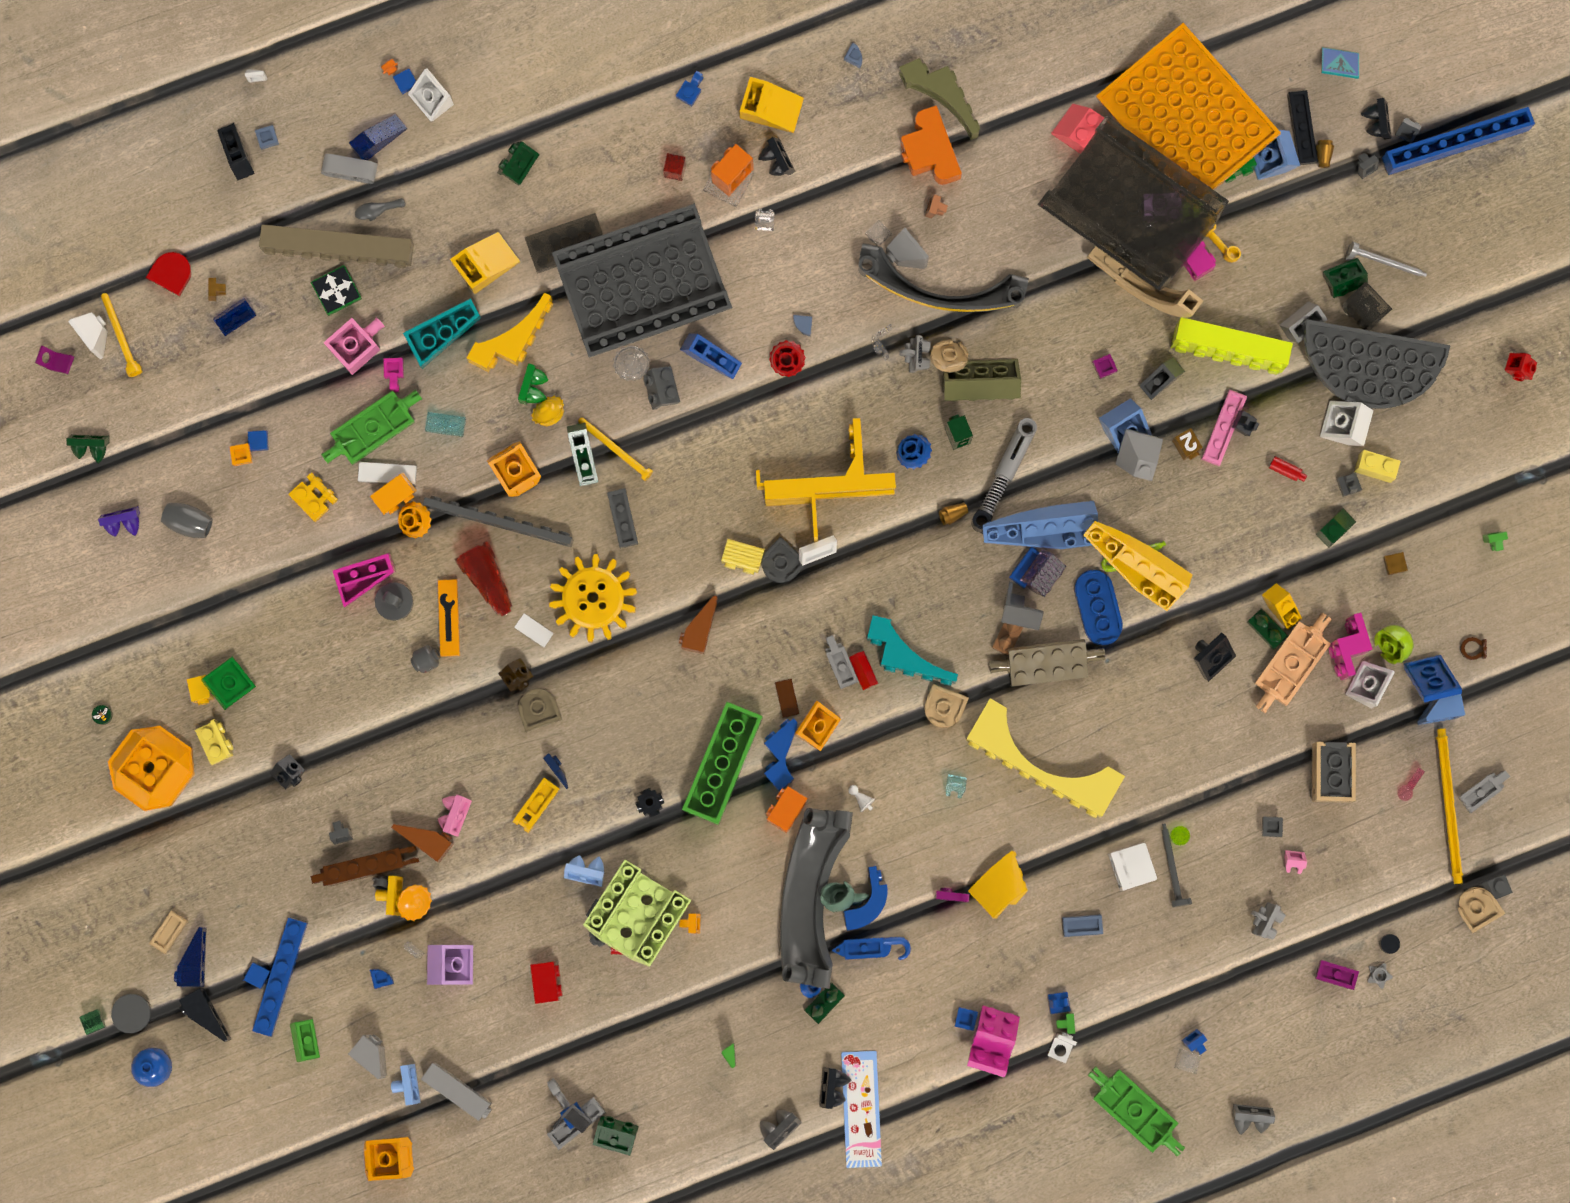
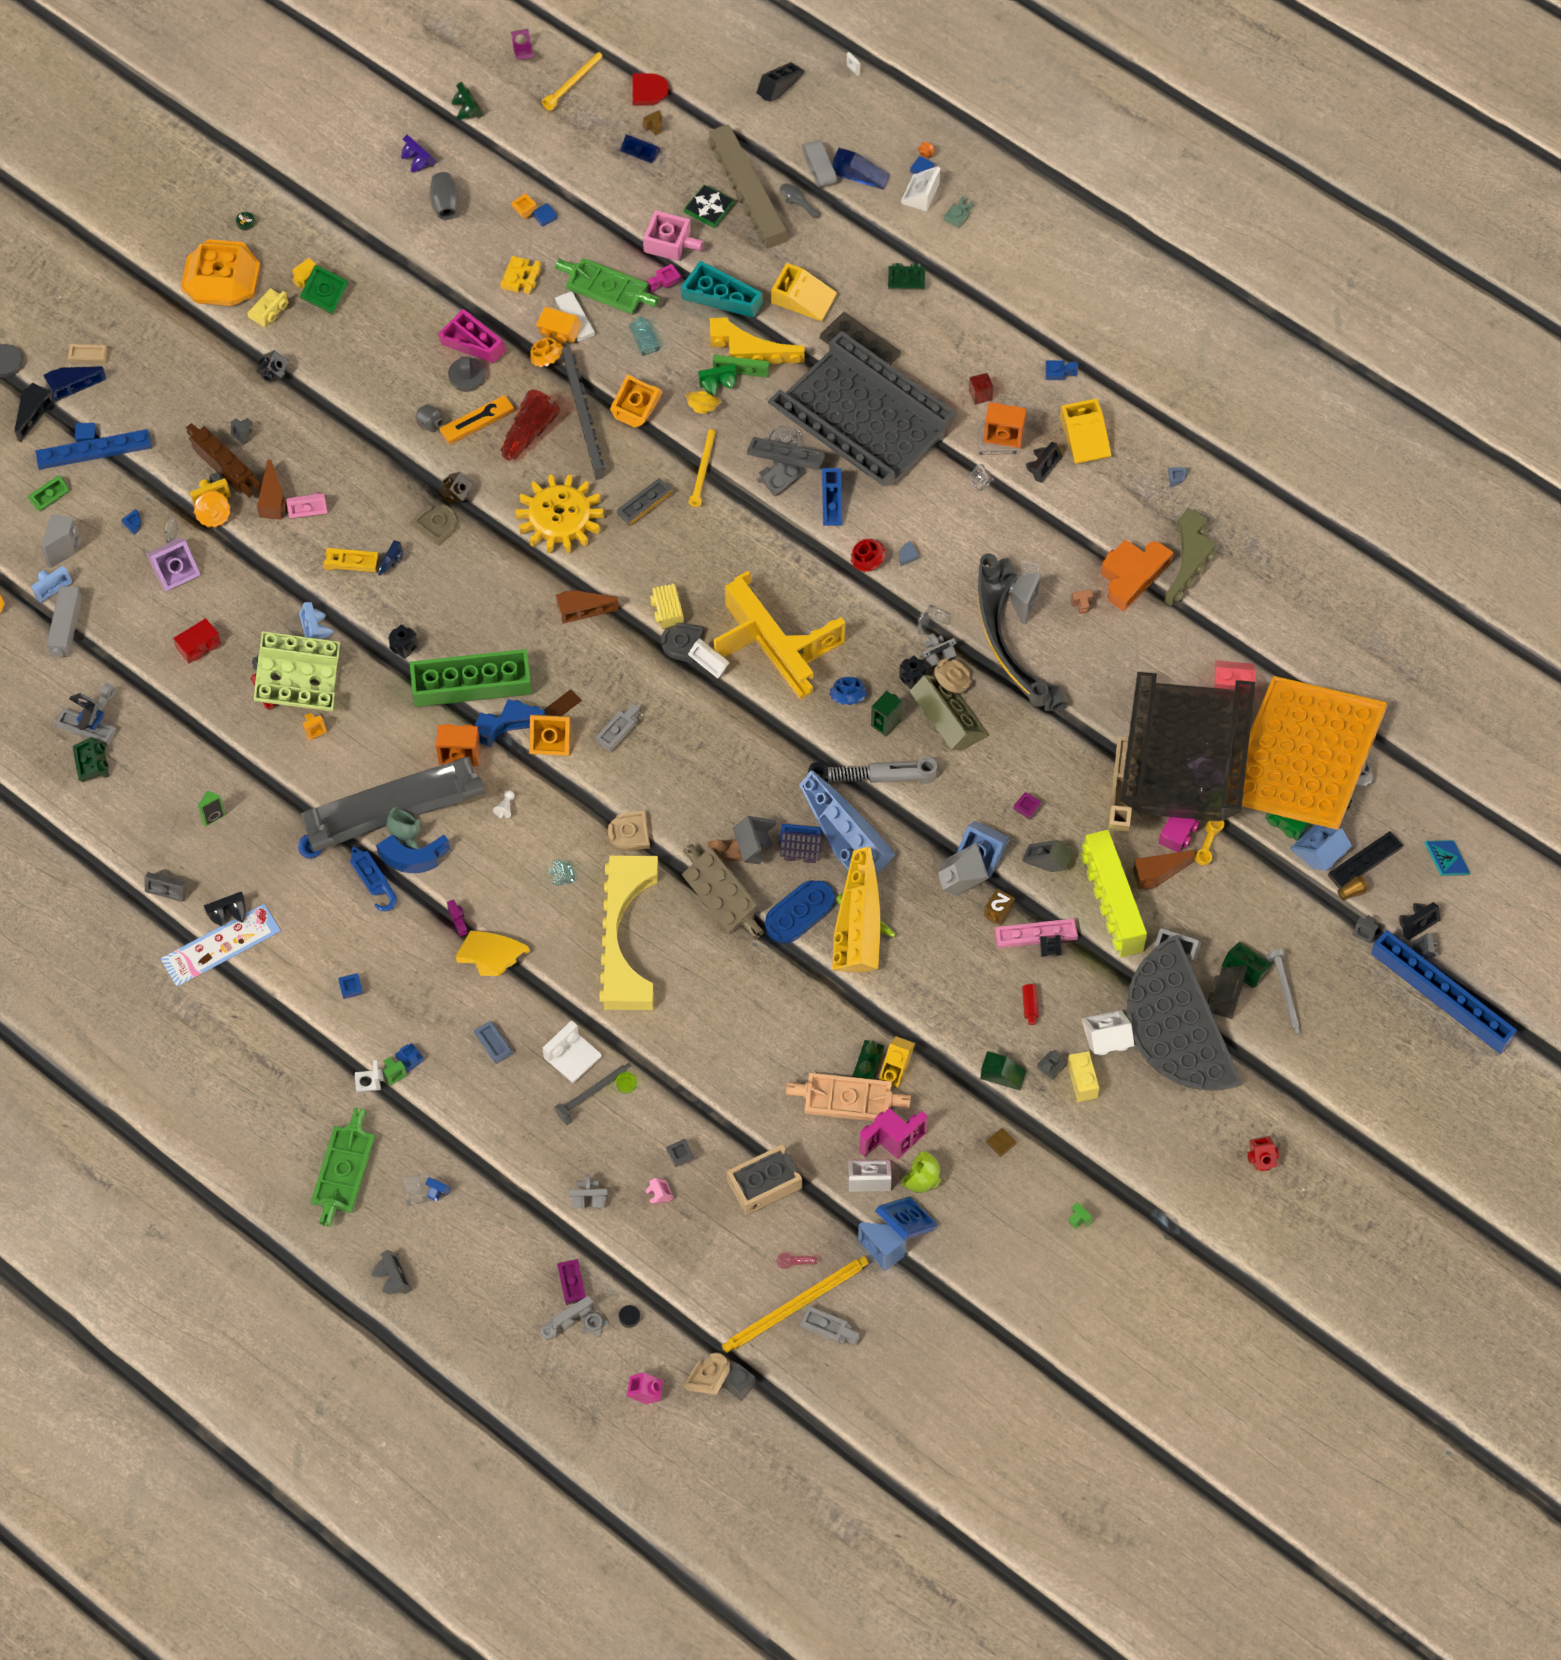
camera: 60 degrees right, 20 degrees down
(92, 332) = (560, 57): white slope -> none
(267, 137) = (807, 97): sand blue tile -> none
(474, 79) = (958, 214): none -> sand green plate
(529, 357) = (743, 366): none -> bright green tile
(534, 630) = (505, 487): white sticker -> none
(582, 454) = (682, 443): slope -> none
(650, 371) = (785, 453): none -> dark grey tile
(824, 1003) = (301, 867): dark green tile -> none
(863, 670) = (622, 749): red piece -> none
(900, 657) = (653, 768): teal arch -> none
(925, 393) = (912, 671): none -> black brick
(952, 513) = (811, 749): pearl gold cone -> none
(993, 1041) = (341, 1013): dark pink bracket -> none
(1213, 656) = (811, 1023): black tile -> none
(1224, 297) = (1157, 869): none -> dark orange slope
(1367, 996) = (566, 1318): none -> light grey hinge
(1464, 966) = (644, 1388): none -> dark pink brick
(1483, 654) = (961, 1263): reddish brown piece -> none

